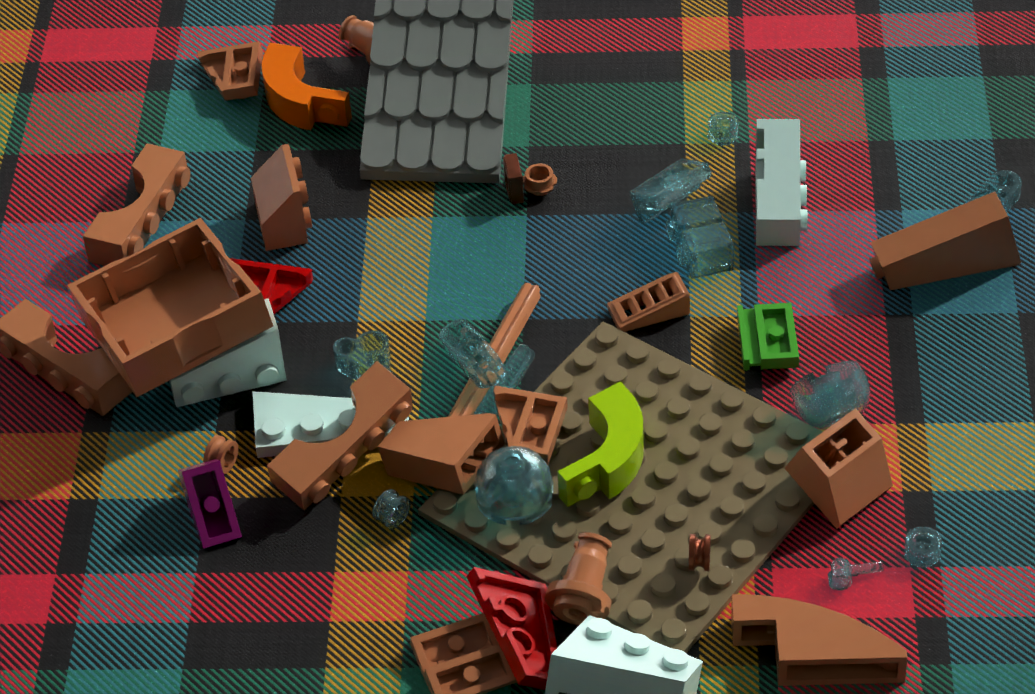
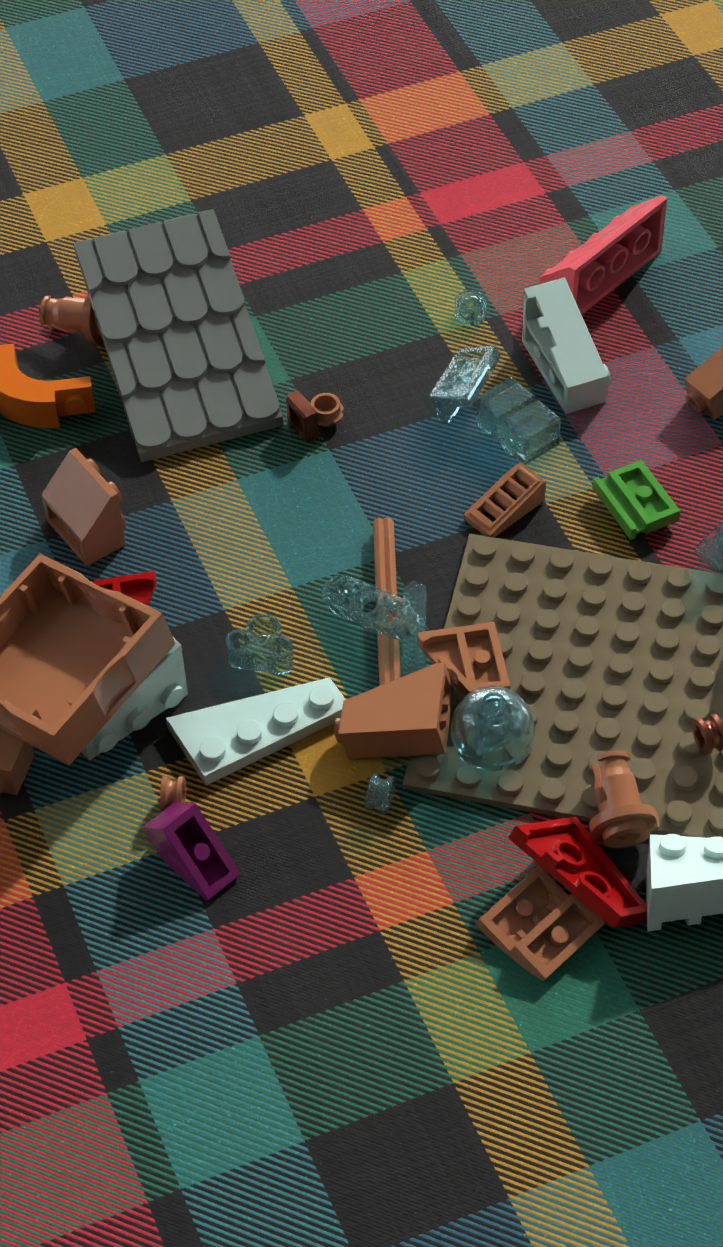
camera: 25 degrees left, 5 degrees up
(308, 469) = (276, 778): nougat arch -> none
(616, 462) = (570, 640): lime arch -> none
(869, 120) = (612, 253): none -> coral slope

